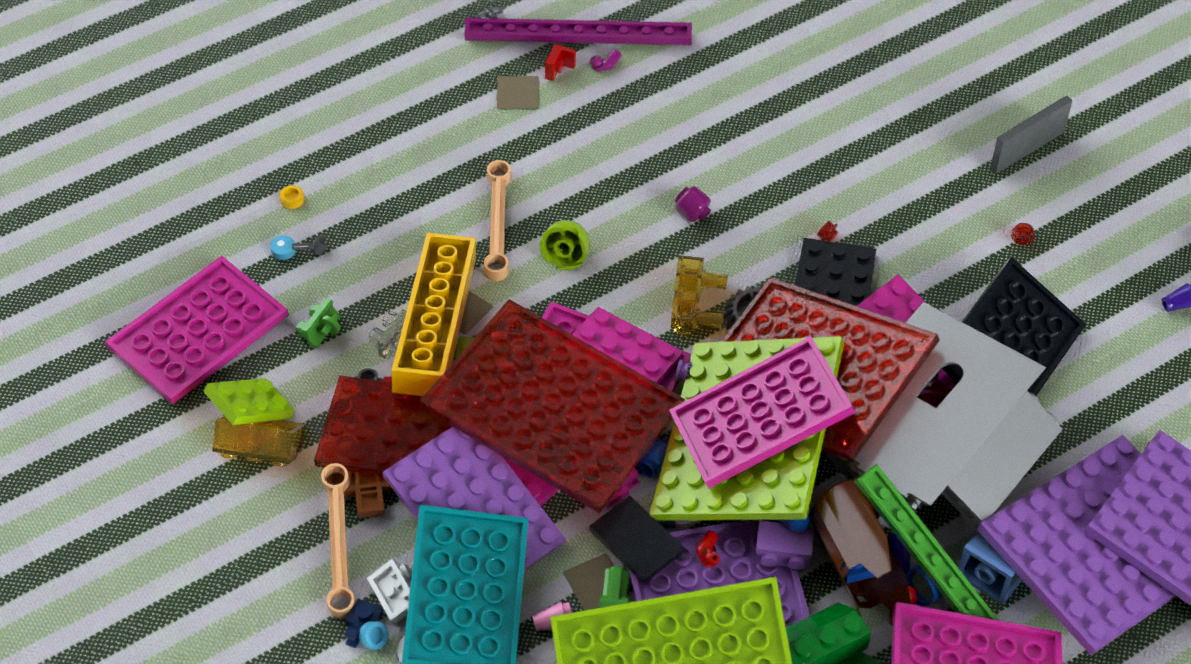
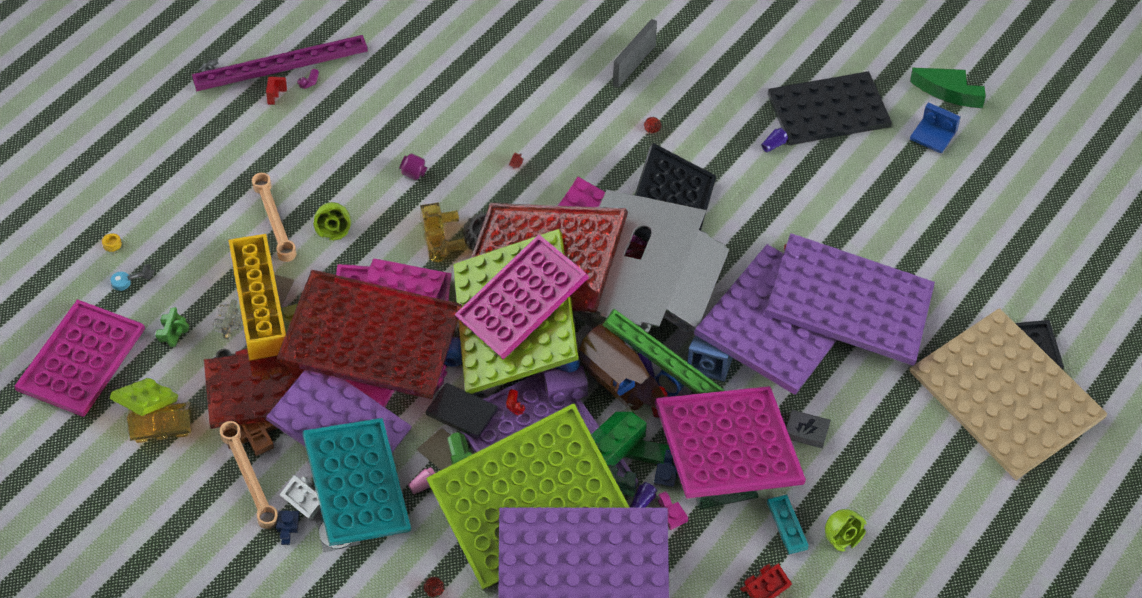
camera: 20 degrees left, 0 degrees up
(373, 635) = (300, 531): medium azure tile -> none
(517, 92) = (251, 120): dark tan sticker -> none
(681, 372) = (451, 286): medium lavender bush -> none
(836, 270) = (531, 185): black plate -> none

